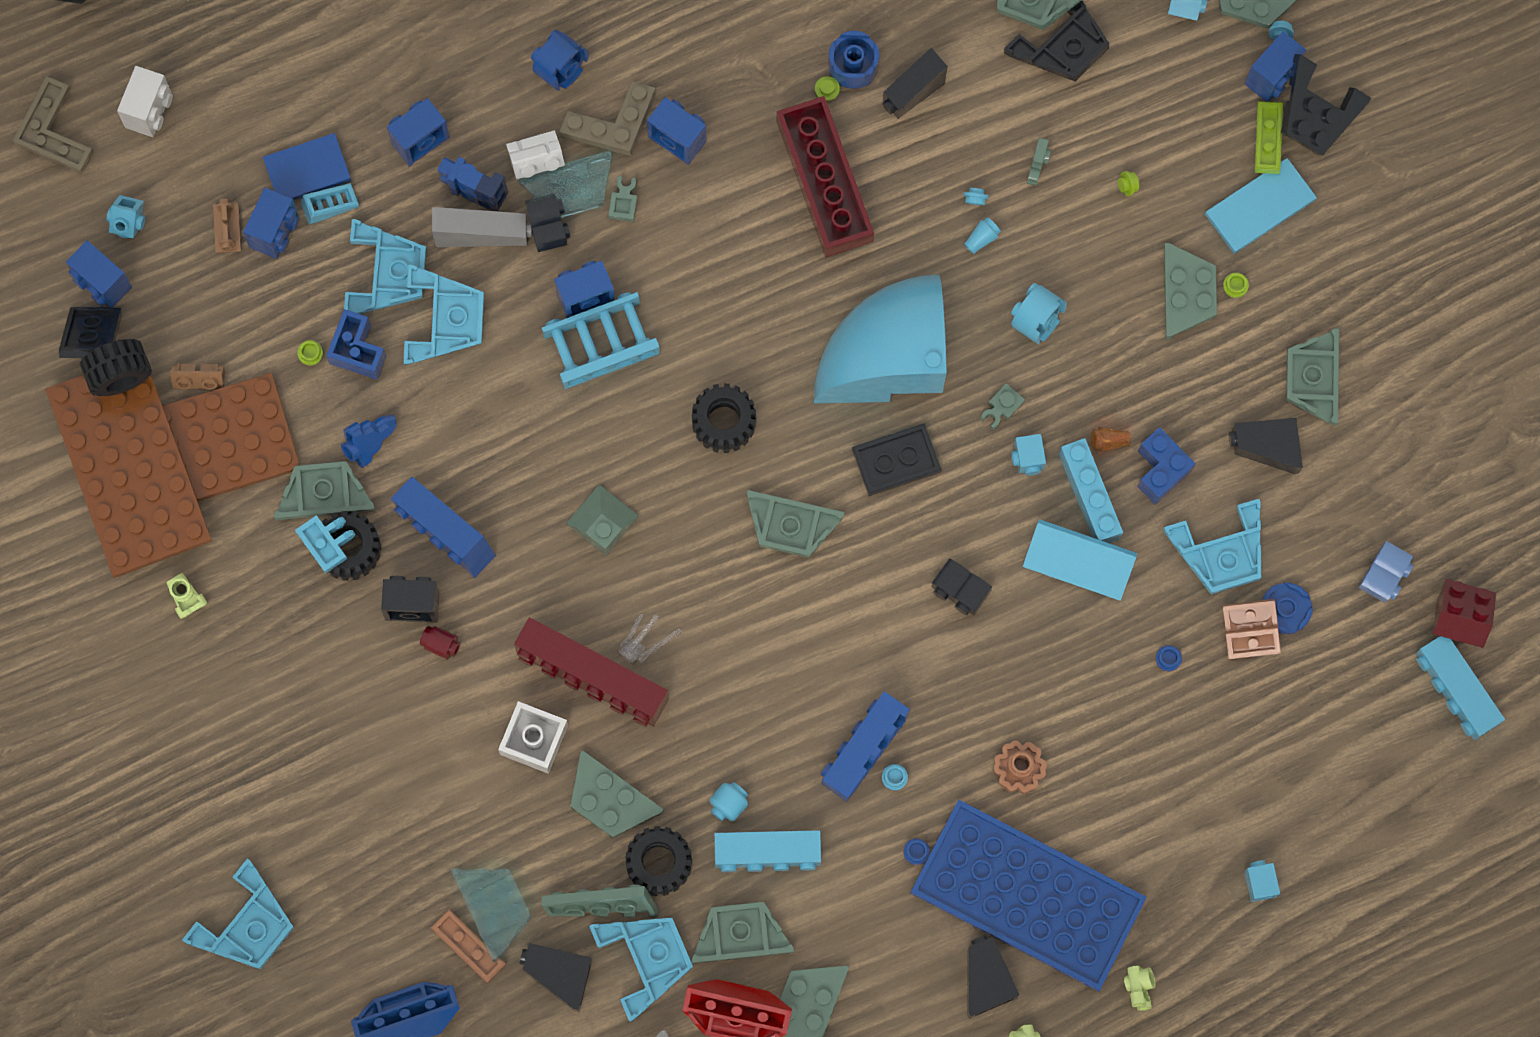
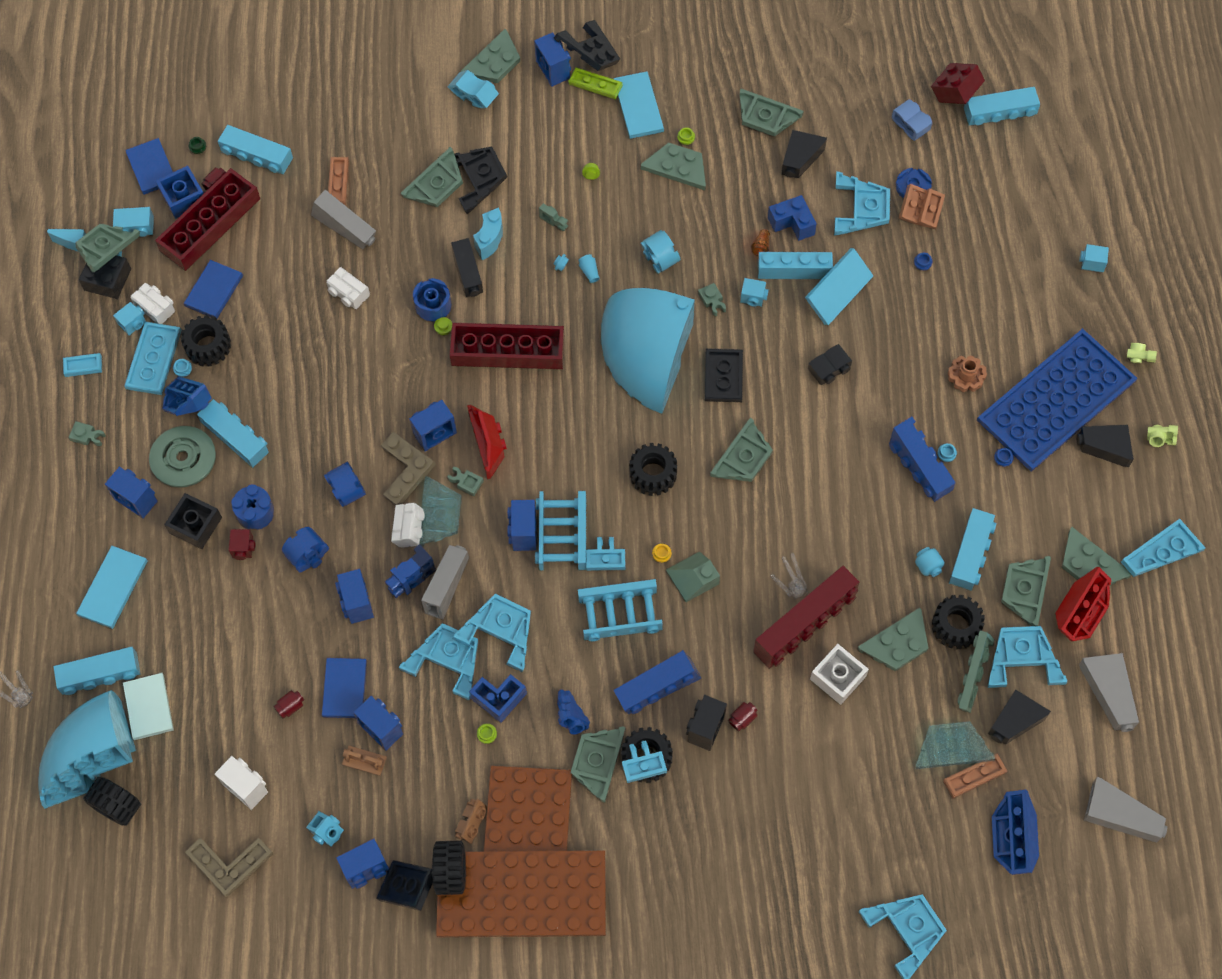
camera: 65 degrees left, 10 degrees down
(186, 602) = (642, 886): yellowish green plate -> none
(261, 114) = (289, 704): none -> dark red brick
(331, 210) = (378, 691): medium azure slope -> none
(455, 49) = (305, 549): none -> blue brick
(535, 426) = (627, 592): none -> medium azure fence
(547, 223) = (461, 533): black brick -> none
(583, 406) = (605, 558): none -> medium azure hinge
(618, 470) = (661, 553): none -> yellow plate
(687, 205) = (487, 439): none -> red wedge
(980, 93) = (490, 235): none -> medium azure brick
(1278, 27) = (527, 51): medium azure plate -> none

